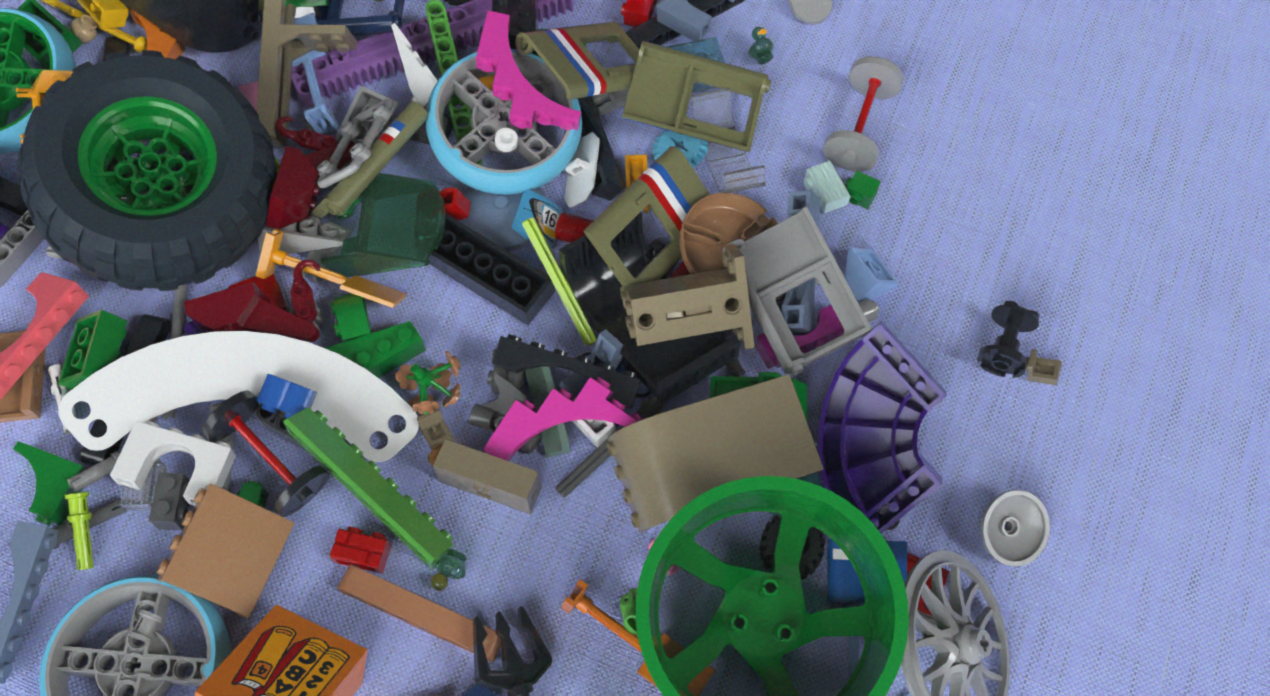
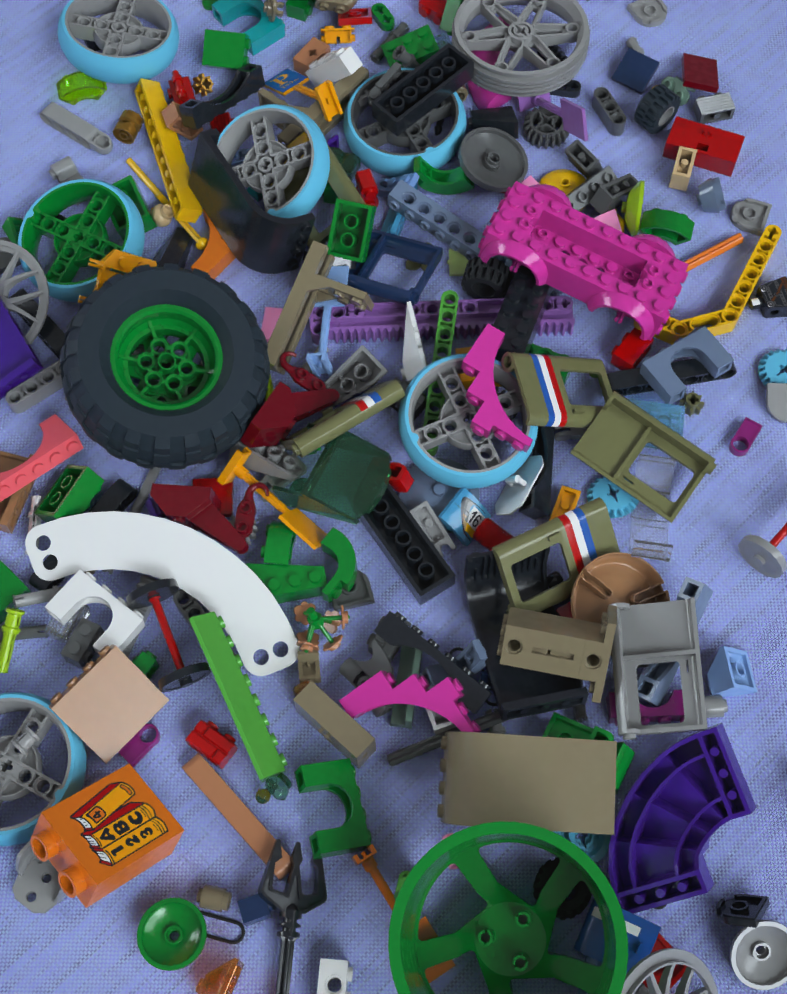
camera: 25 degrees right, 0 degrees up
(278, 589) = (136, 748): none -> magenta piece
(285, 396) = (201, 594): blue brick -> none
(360, 152) = (336, 410): light grey bar -> none
(424, 300) = (342, 551): none -> green arch
(447, 334) = (359, 595): none -> dark grey tile
(506, 139) = (461, 440): white tile -> none
(508, 239) = (432, 526): none -> light grey plate
(515, 531) = (338, 778): none -> green arch
(559, 281) = (459, 579): lime axle -> none
(722, 32) = (691, 403): none -> olive gear
(762, 48) = (725, 429): animal -> none
(784, 46) = (747, 434): none -> magenta piece
(827, 185) = (728, 579): light aqua brick -> none
(862, 189) = (758, 593): green brick -> none
(976, 494) = (742, 910): none -> black tile

